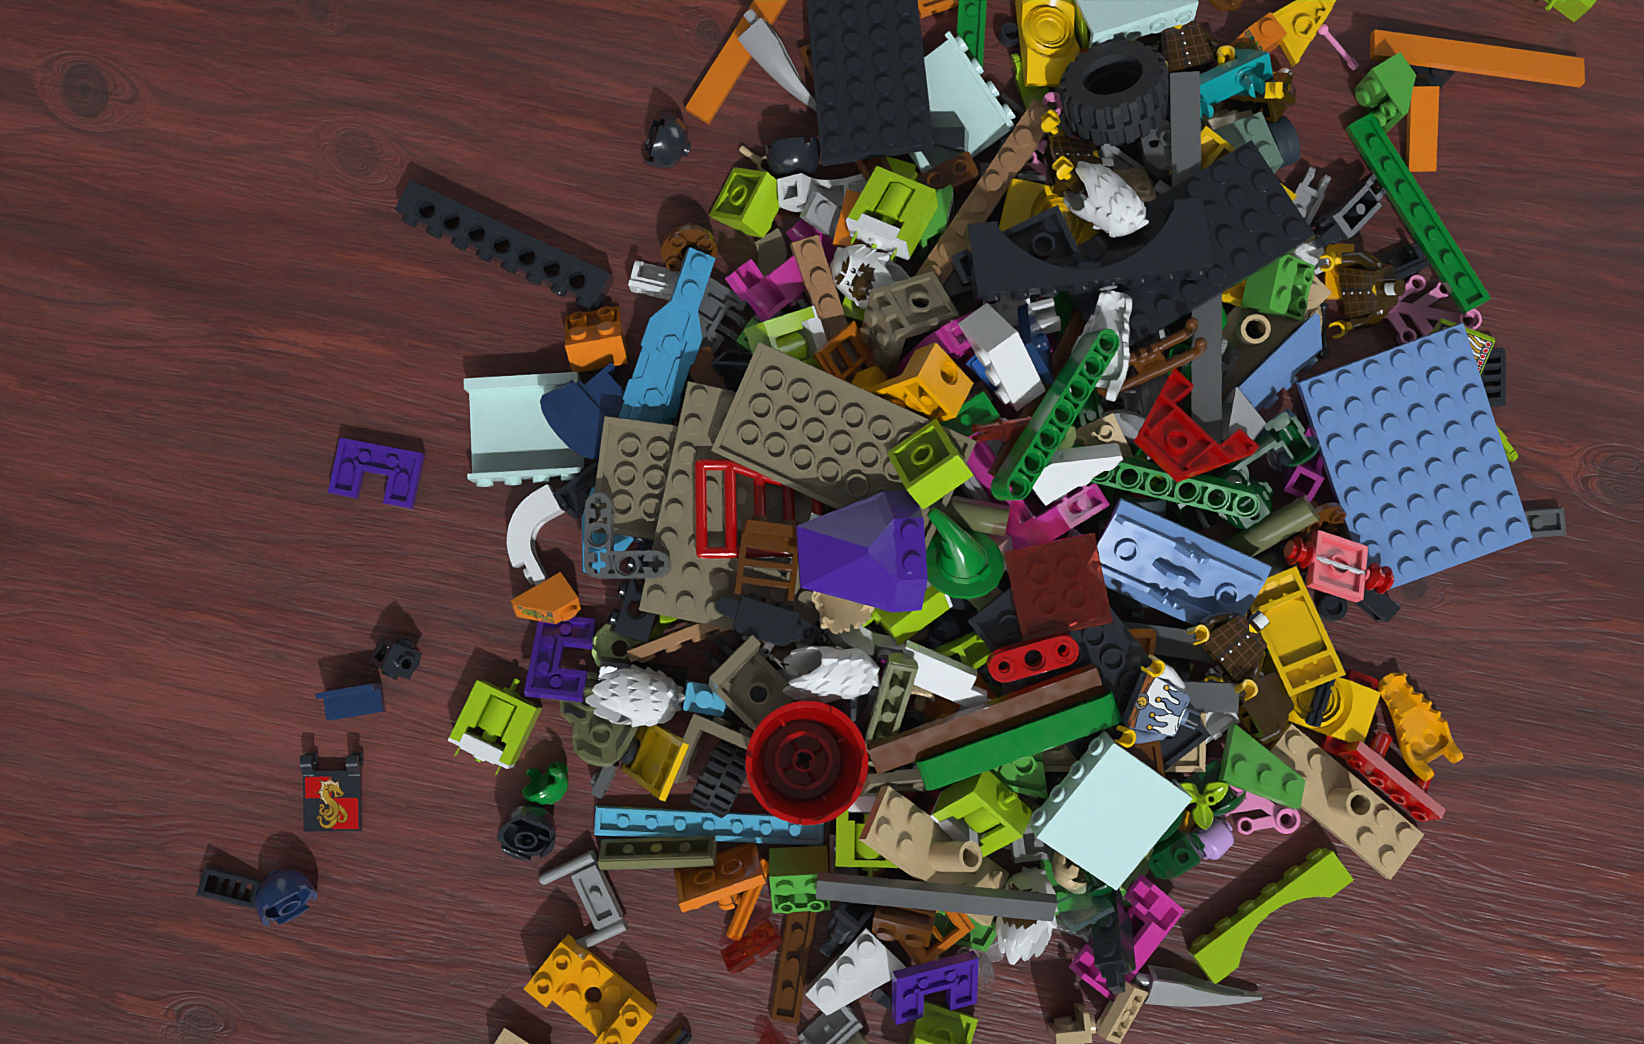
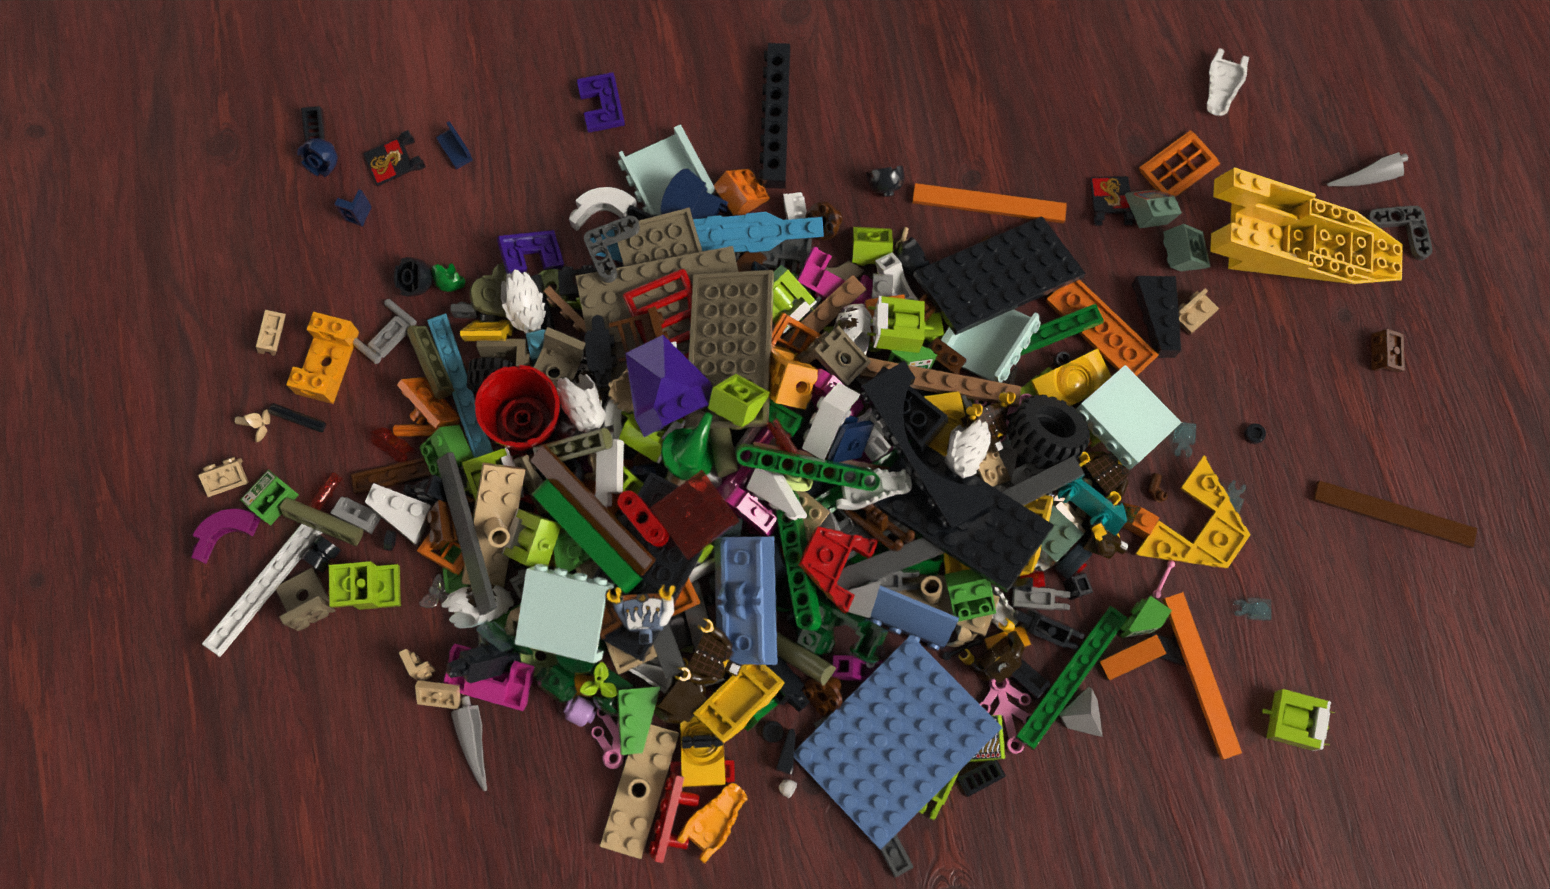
camera: 65 degrees right, 10 degrees down
(395, 874) = (356, 211): none -> dark blue panel
(396, 657) = (491, 158): black brick -> none
(500, 714) = (478, 236): lime piece -> none
(548, 601) = (562, 230): orange slope -> none
(771, 55) = (975, 218): light grey piece -> none
(951, 138) = (971, 347): black slope -> none
(955, 974) = (422, 570): dark purple plate -> none
(1222, 948) = (580, 795): lime arch -> none
(1309, 155) = (1078, 586): none -> black slope
(1338, 566) = (798, 714): coral plate -> none
(1408, 617) = (787, 787): none -> white hinge
(1464, 220) = (1083, 714): none -> light grey slope

